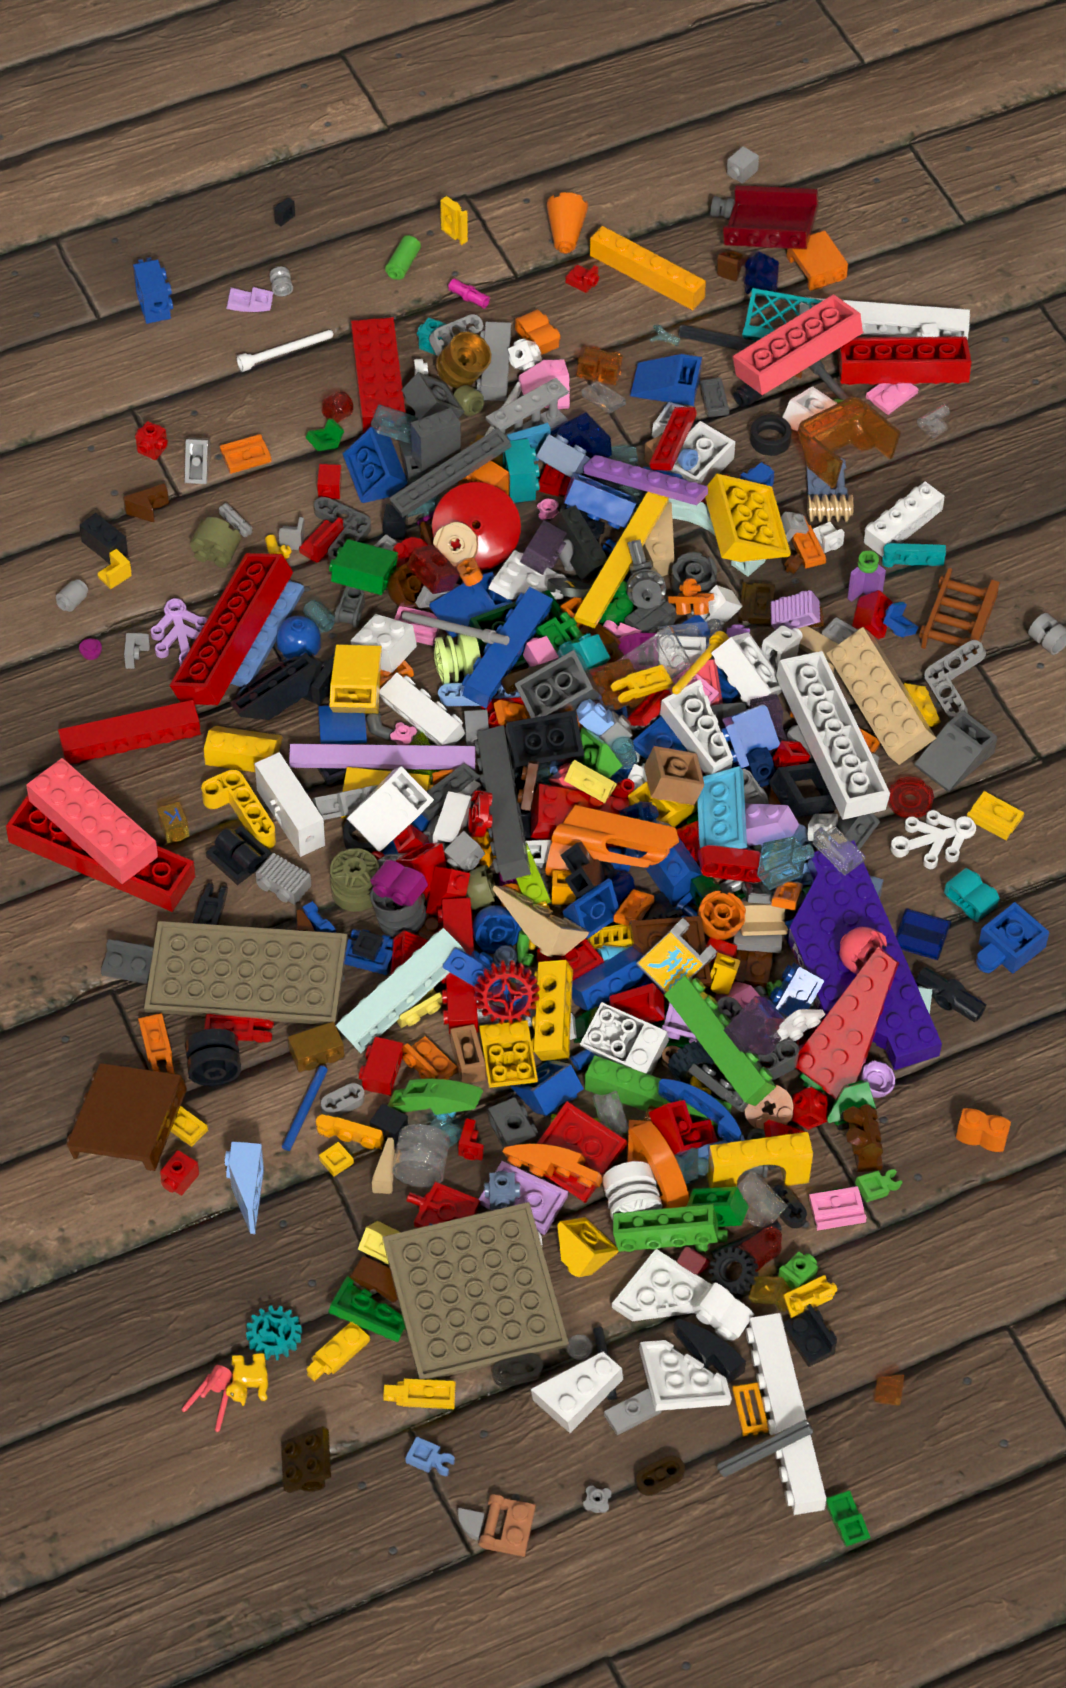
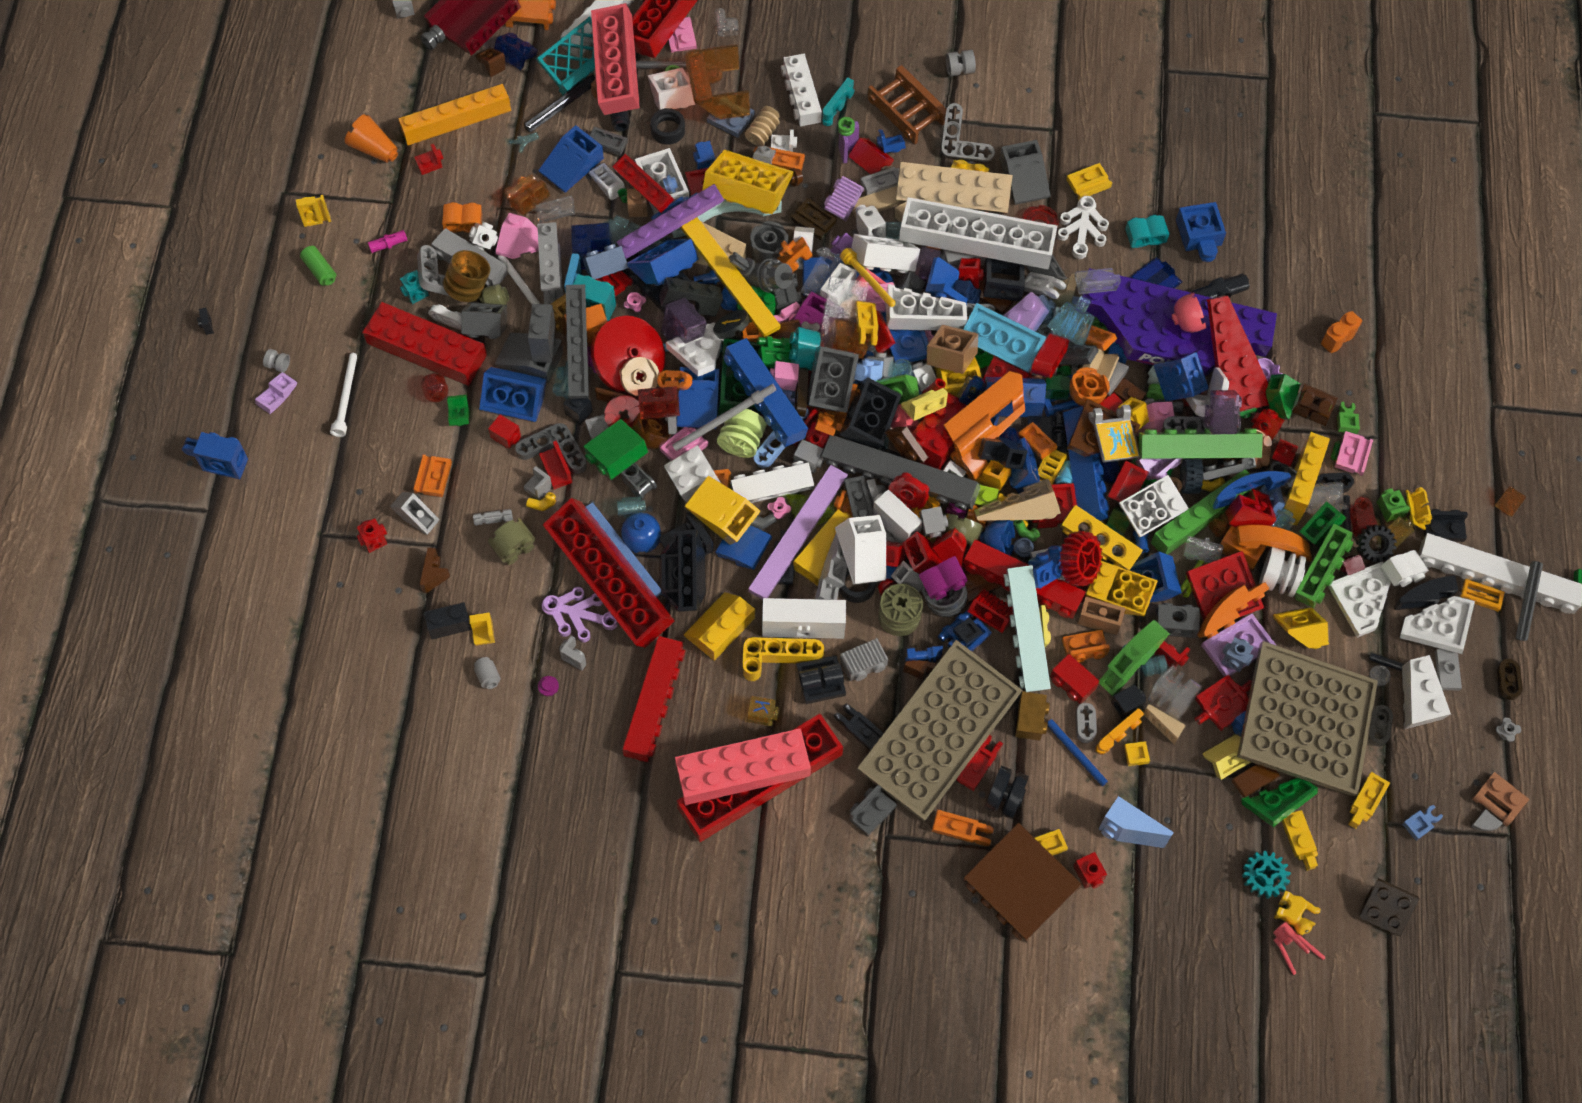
camera: 60 degrees left, 10 degrees up
(393, 423) = (491, 357): clear light blue bracket -> none

